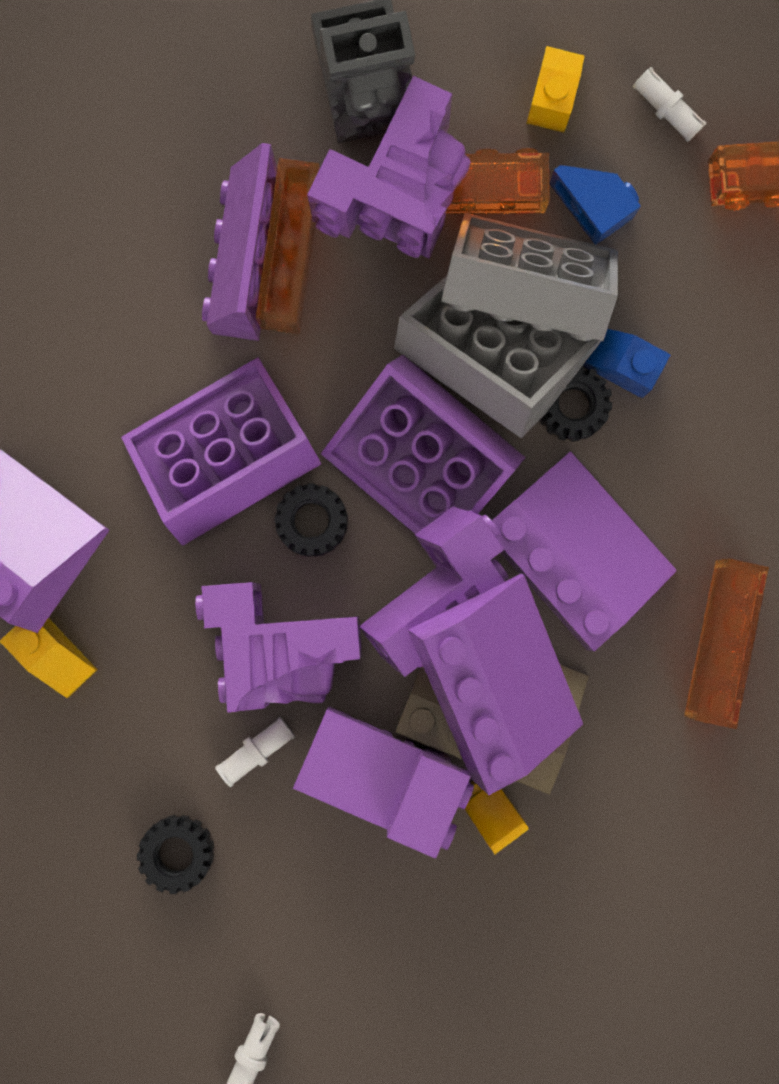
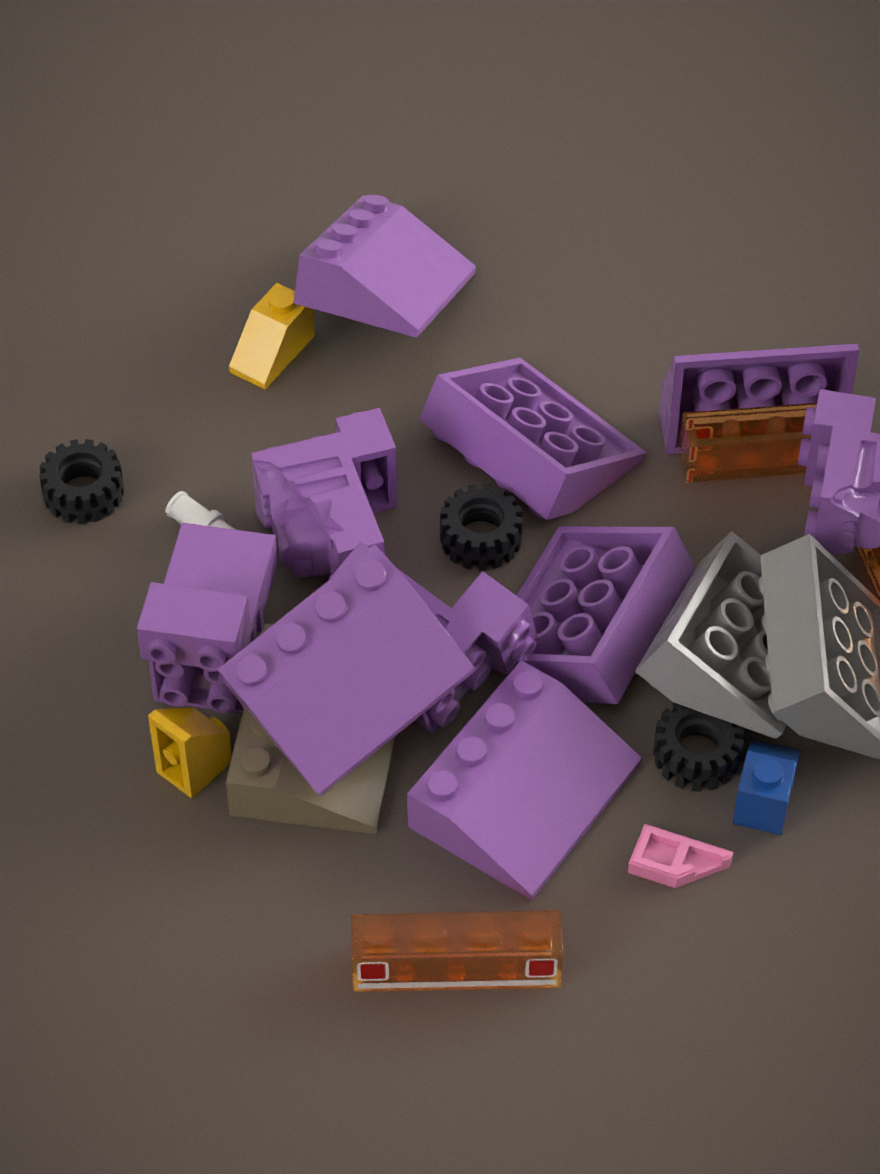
camera: 75 degrees right, 35 degrees down
(667, 453) = (675, 858): none -> bright pink tile

